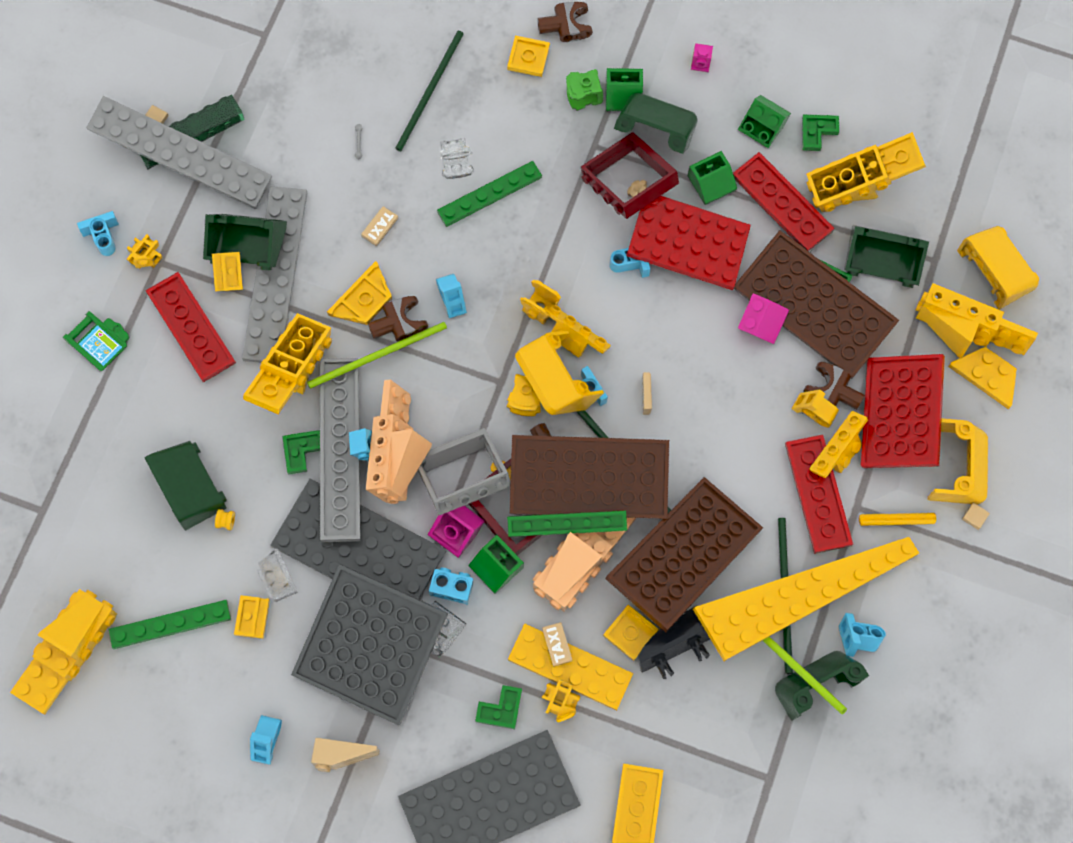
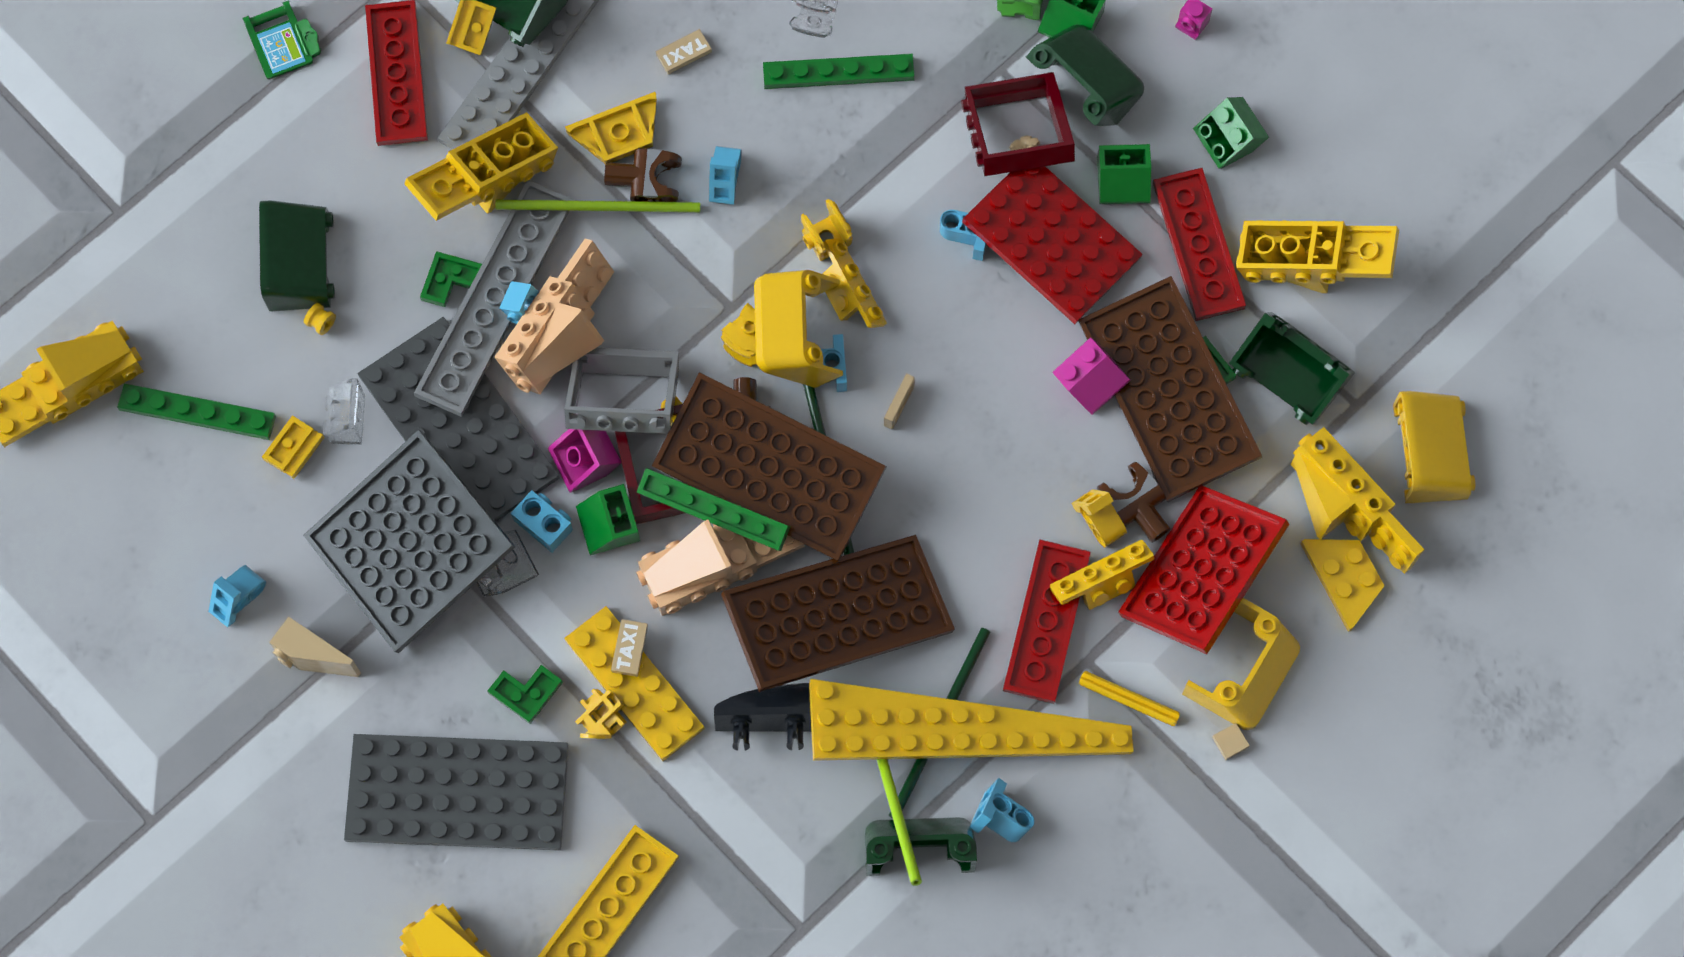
camera: 30 degrees right, 0 degrees up
(630, 632) = (724, 674): yellow plate -> none
(816, 125) = (1293, 167): green plate -> none

